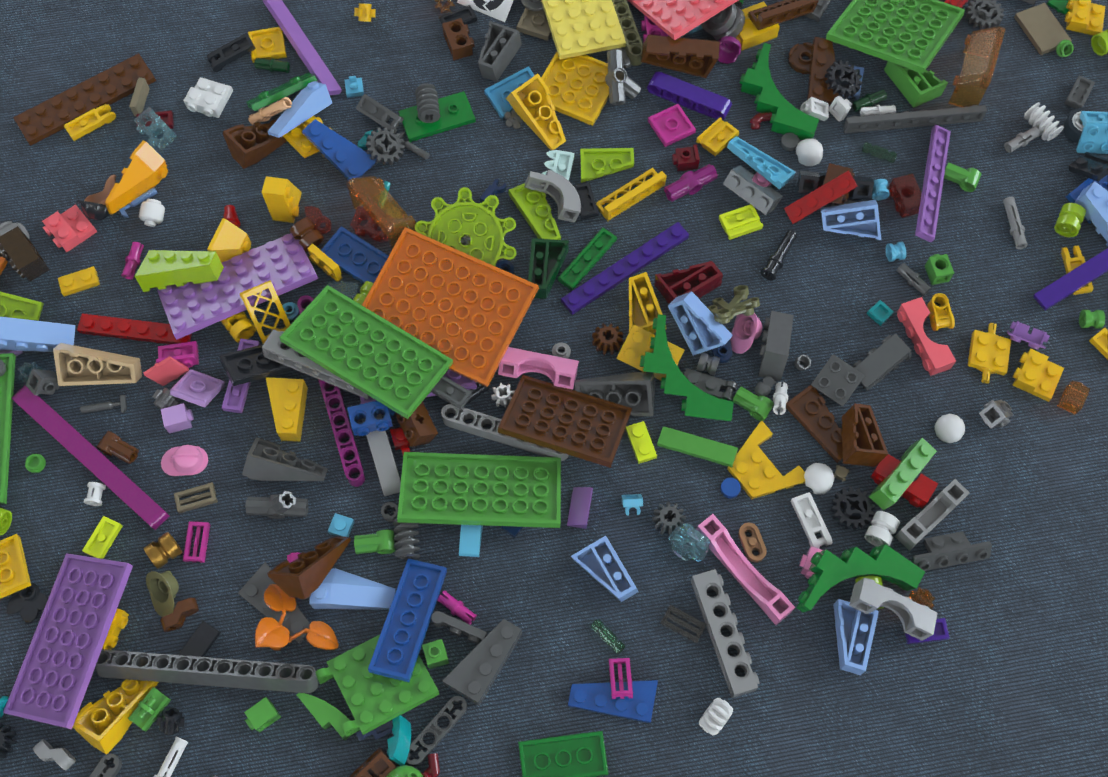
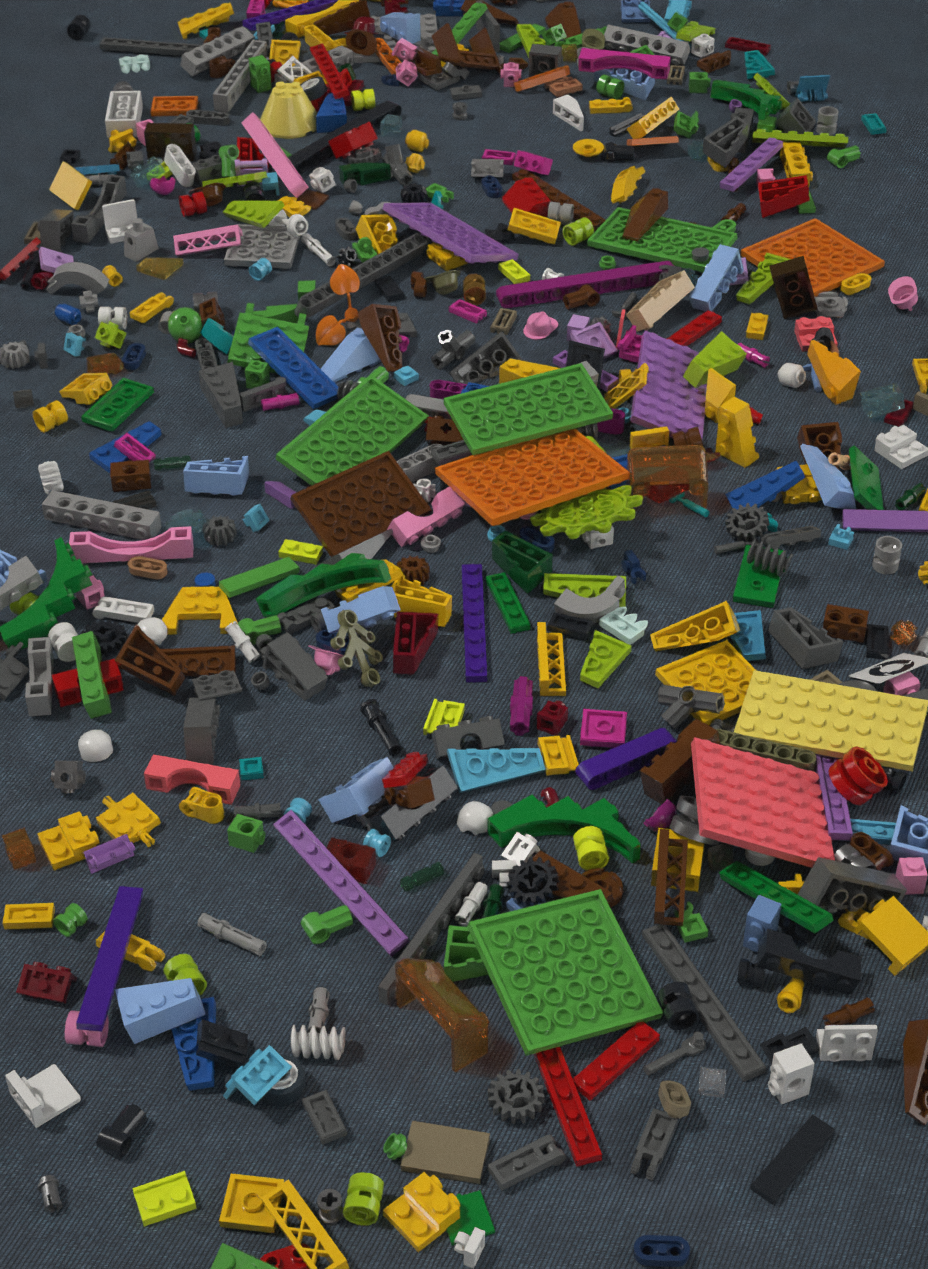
camera: 125 degrees right, 25 degrees down
(363, 43) = (887, 555): none -> light grey wheel
(659, 664) = (130, 475): none -> reddish brown brick
(785, 71) = (590, 848): none -> neon yellow wheel

